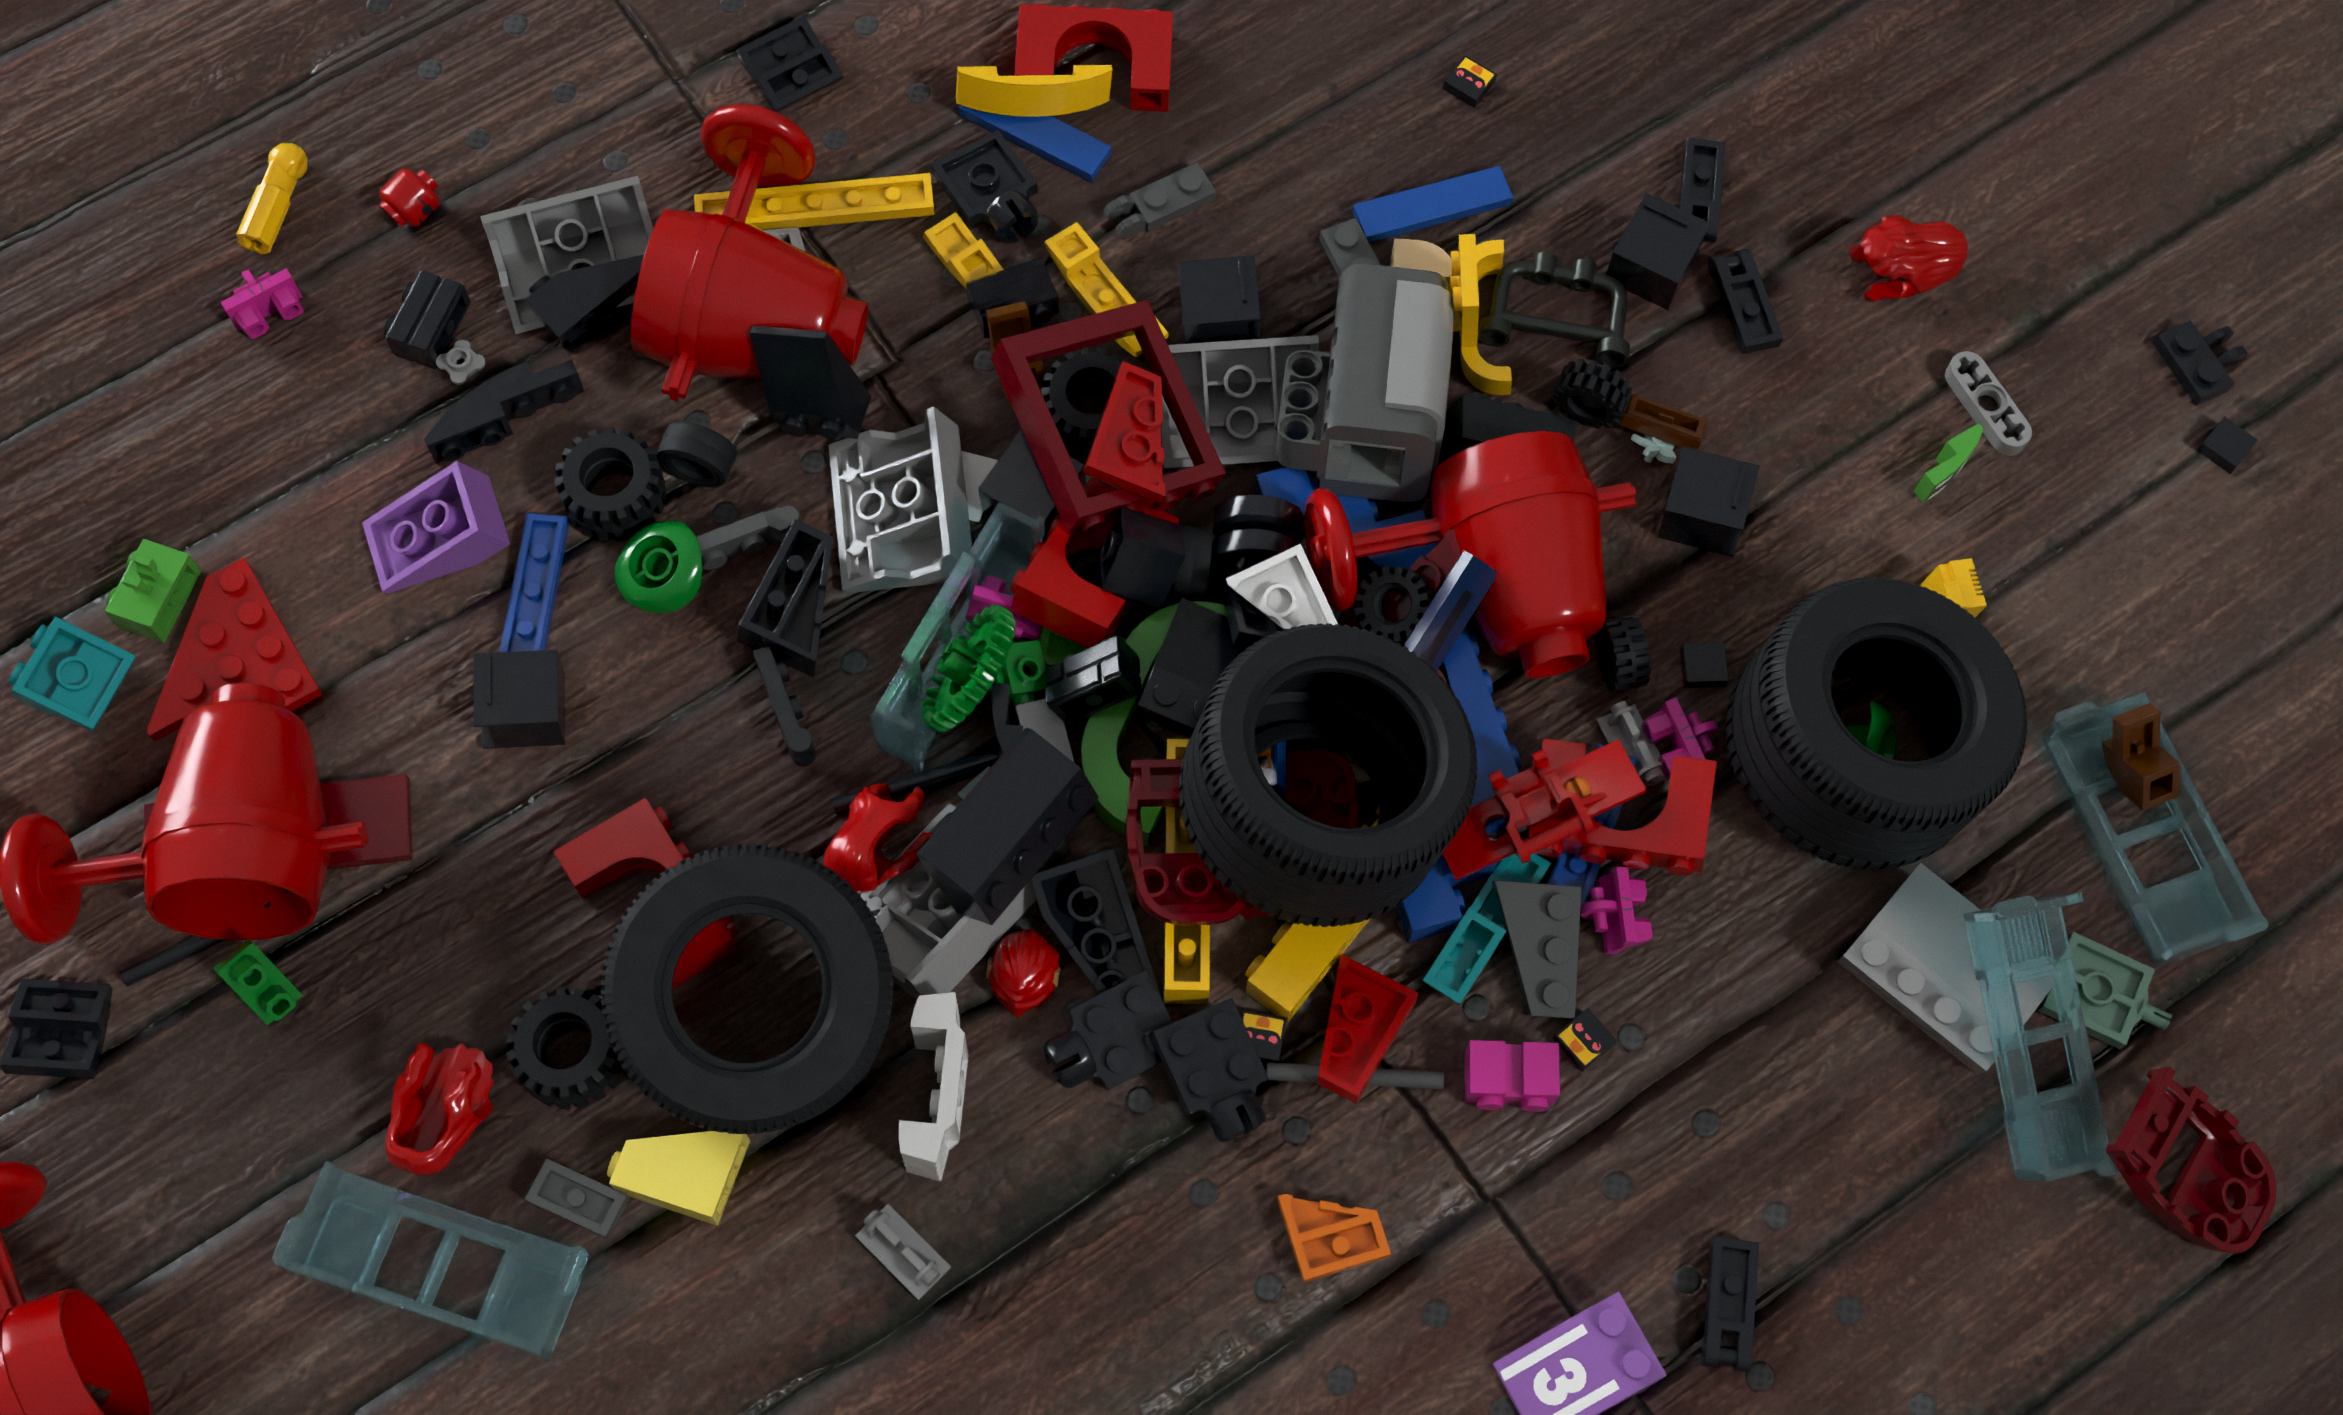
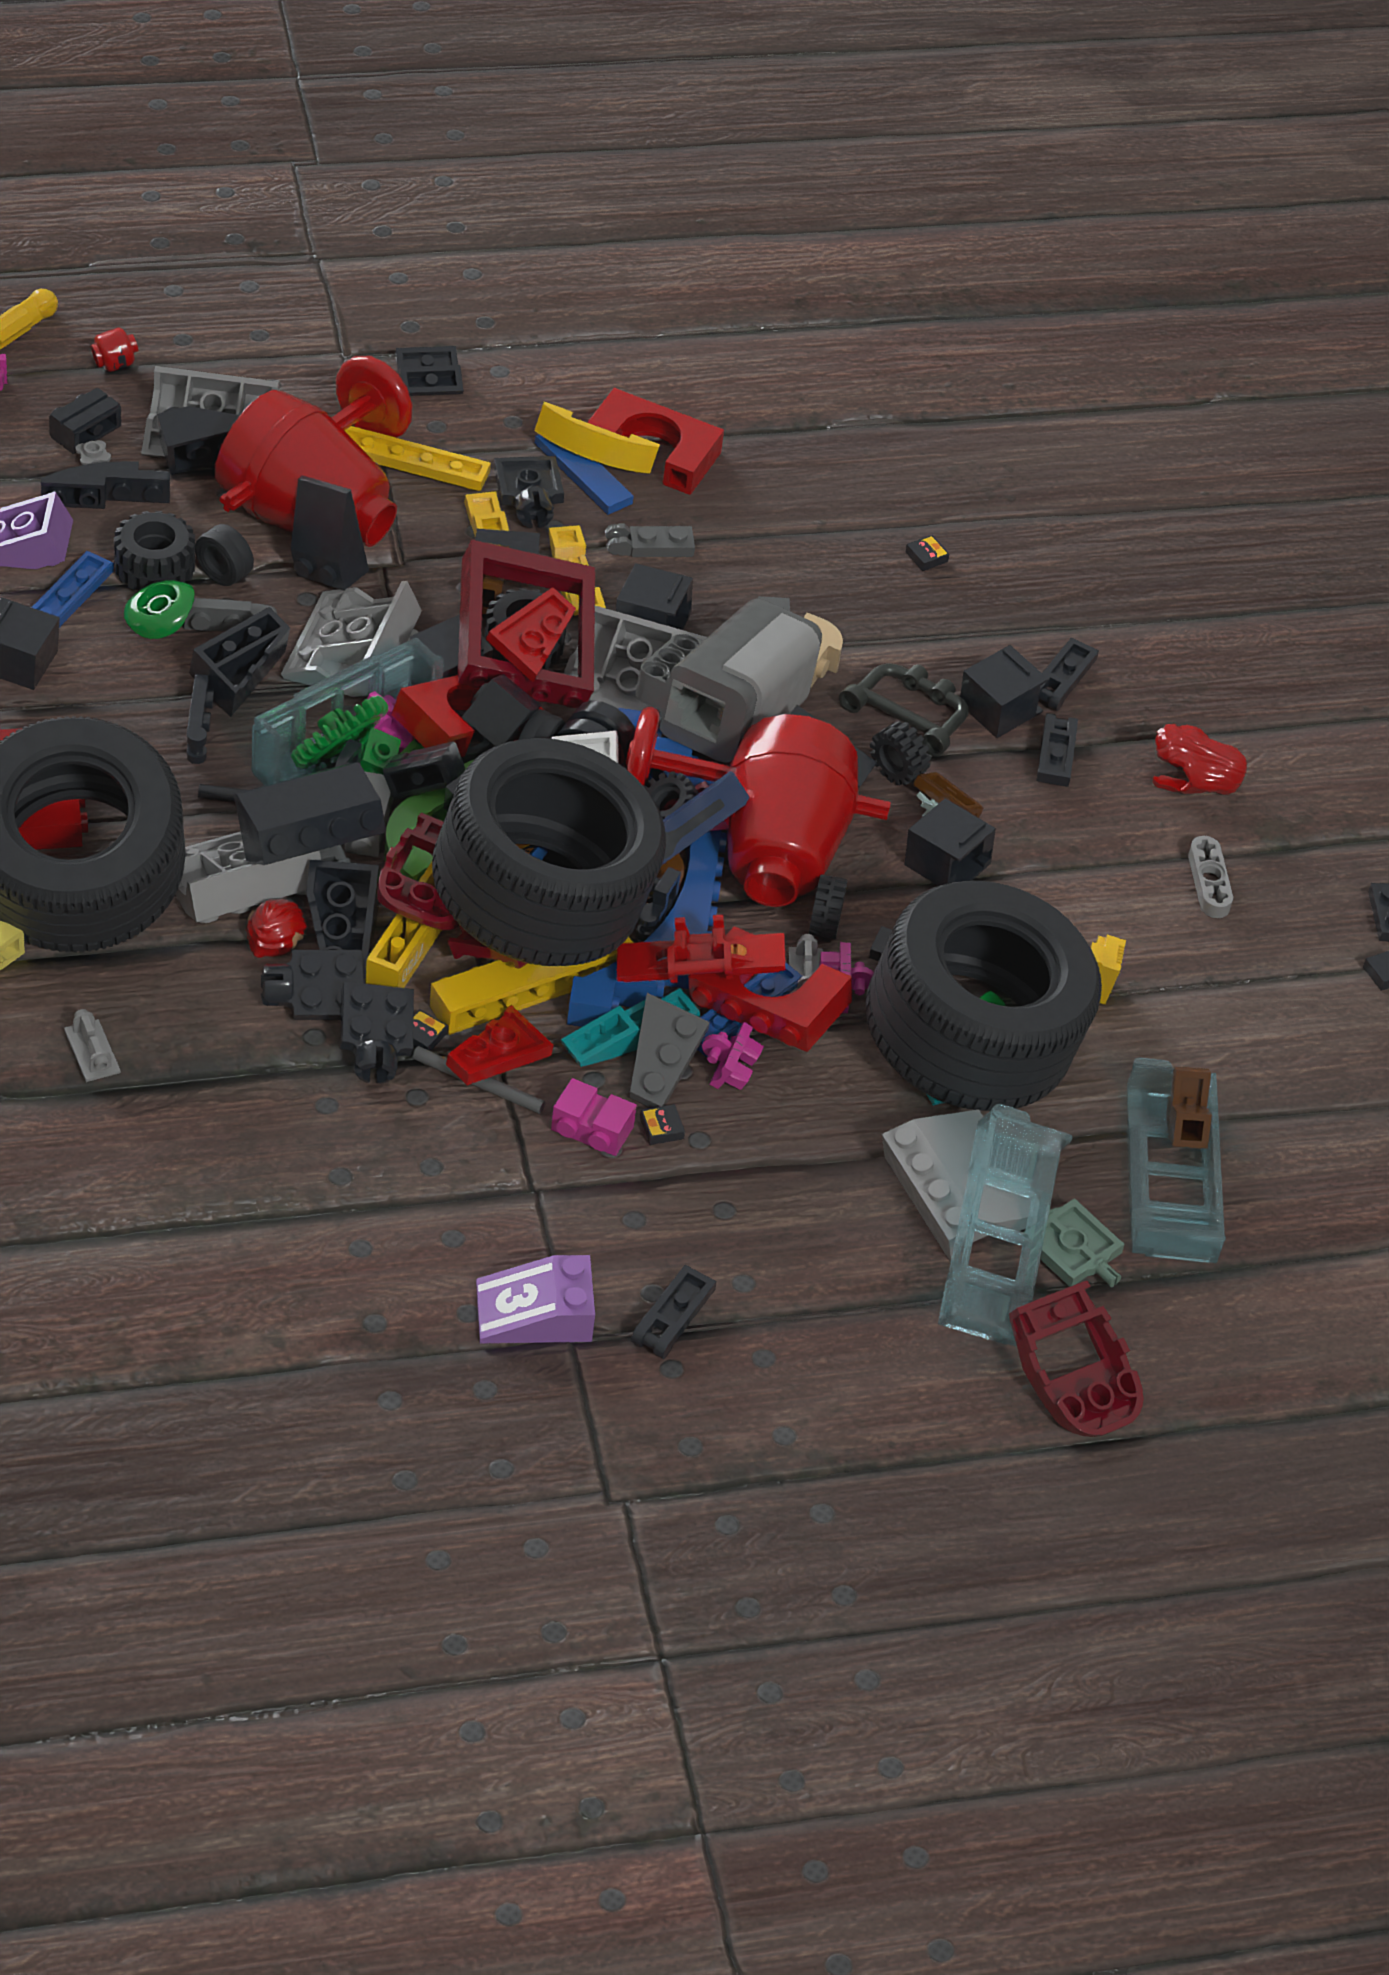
camera: 20 degrees right, 20 degrees down
(858, 844) = (211, 804): red hair -> none
(937, 1028) = (159, 983): white plate -> none
(1331, 1236) = (403, 1159): orange wing -> none
(1433, 204) = (857, 612): blue tile -> none
(1467, 268) = (840, 660): yellow piece -> none
(1950, 461) = (1151, 900): bright green slope -> none

